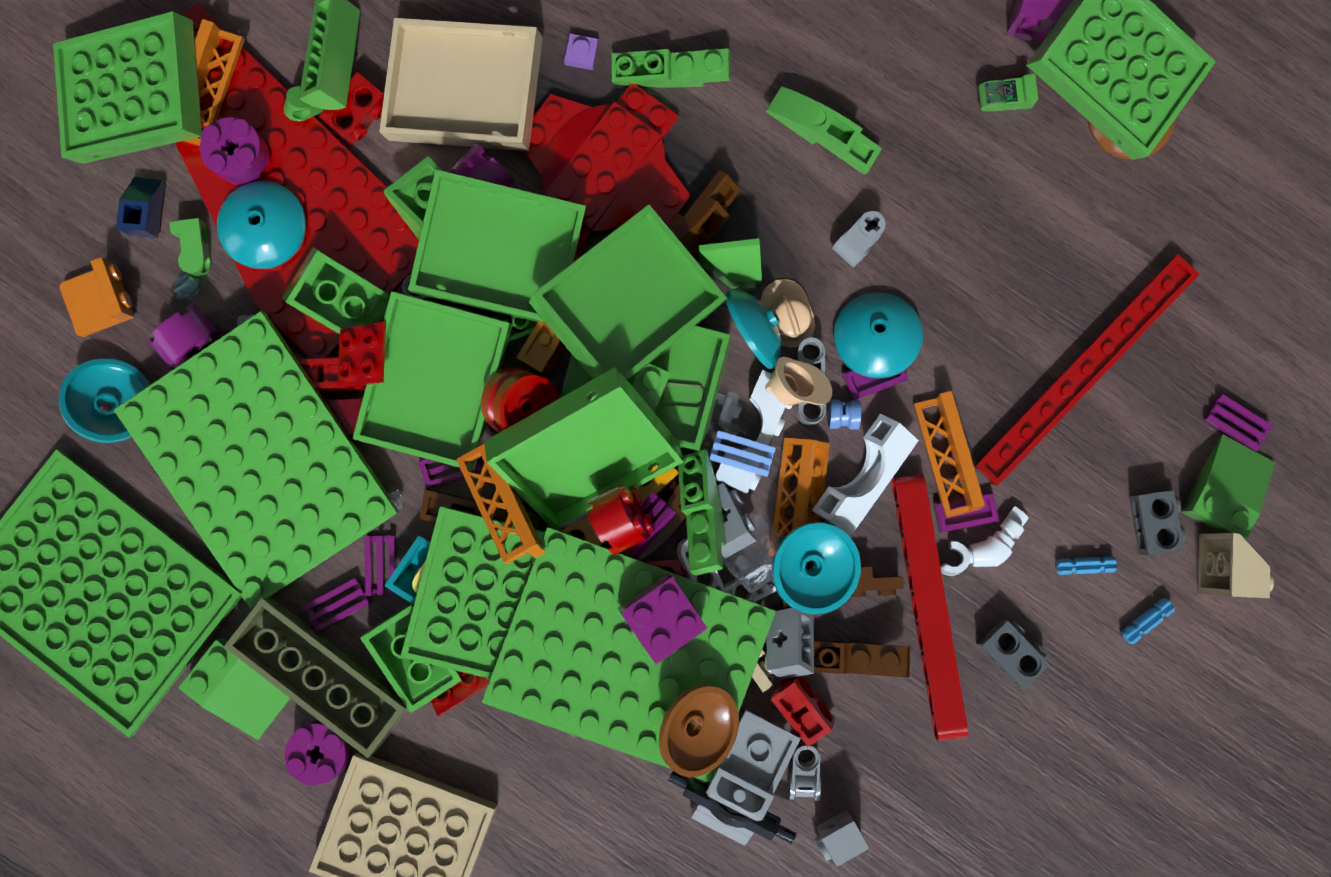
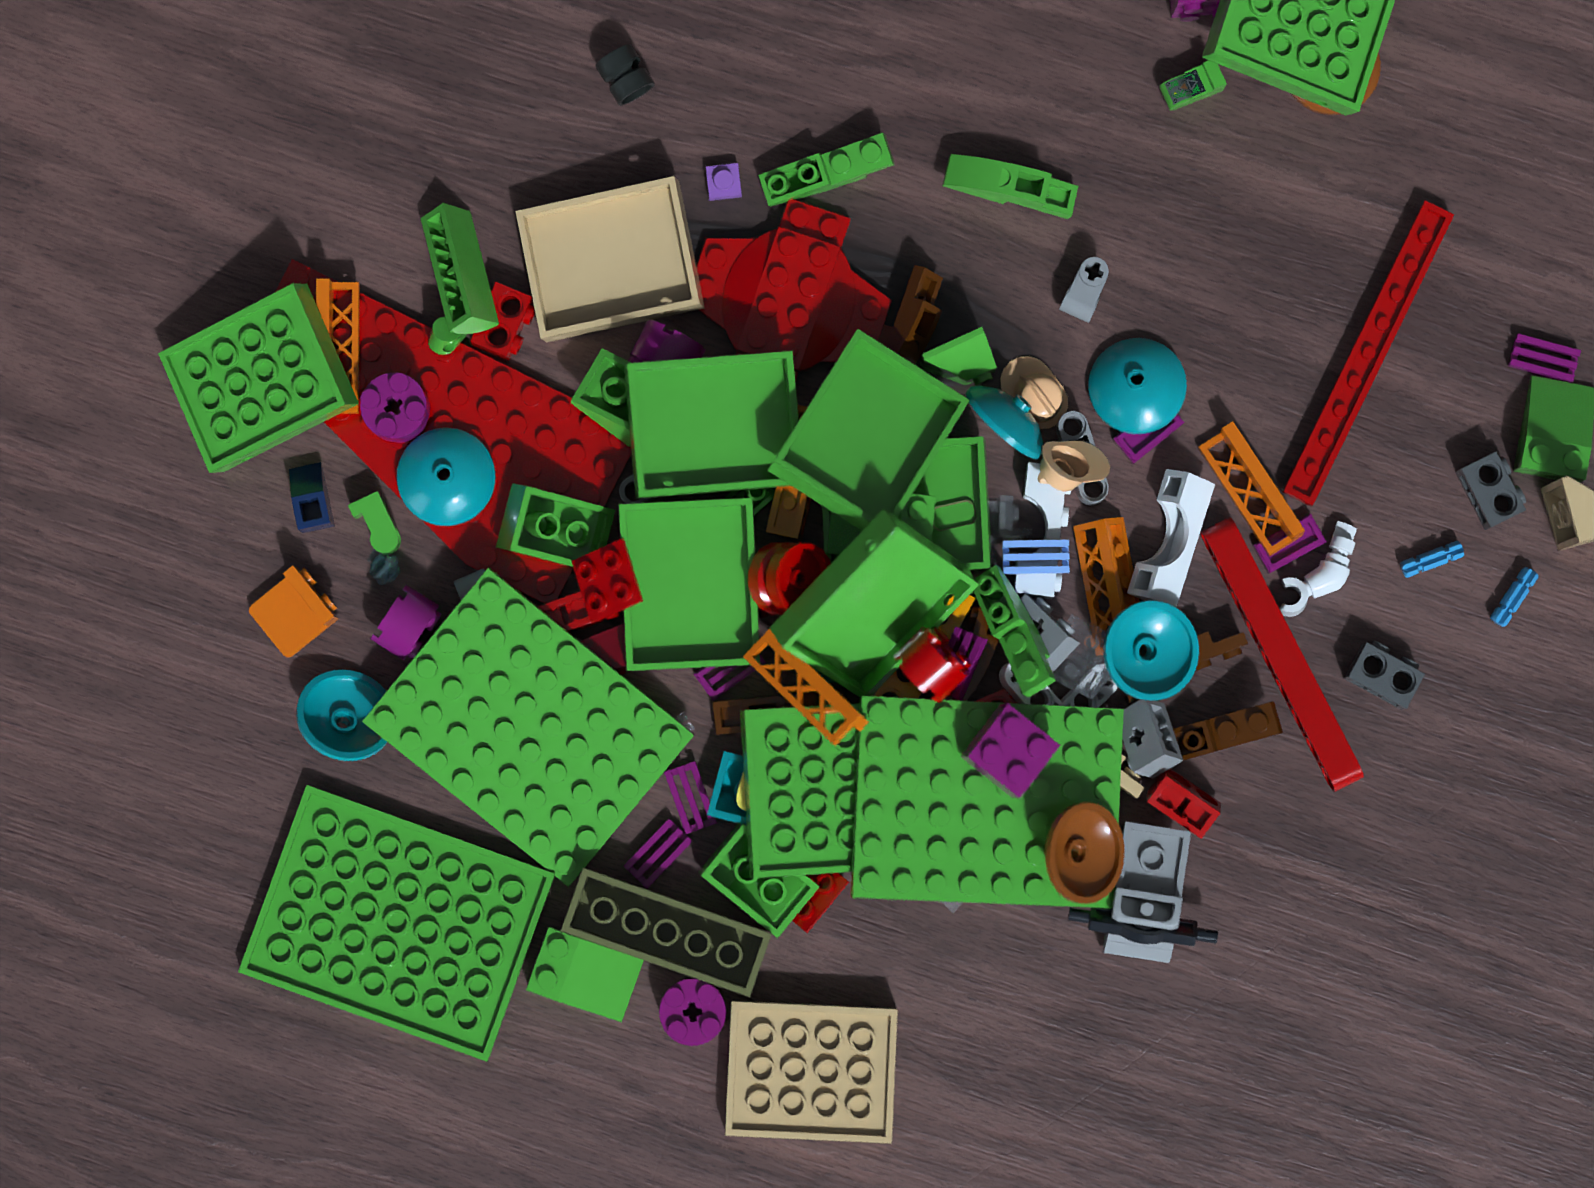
camera: 25 degrees left, 0 degrees up
(805, 777) = (1207, 871): light grey piece -> none
(840, 839) = (1265, 922): light grey brick -> none
(844, 414) = (1128, 481): medium blue wheel -> none

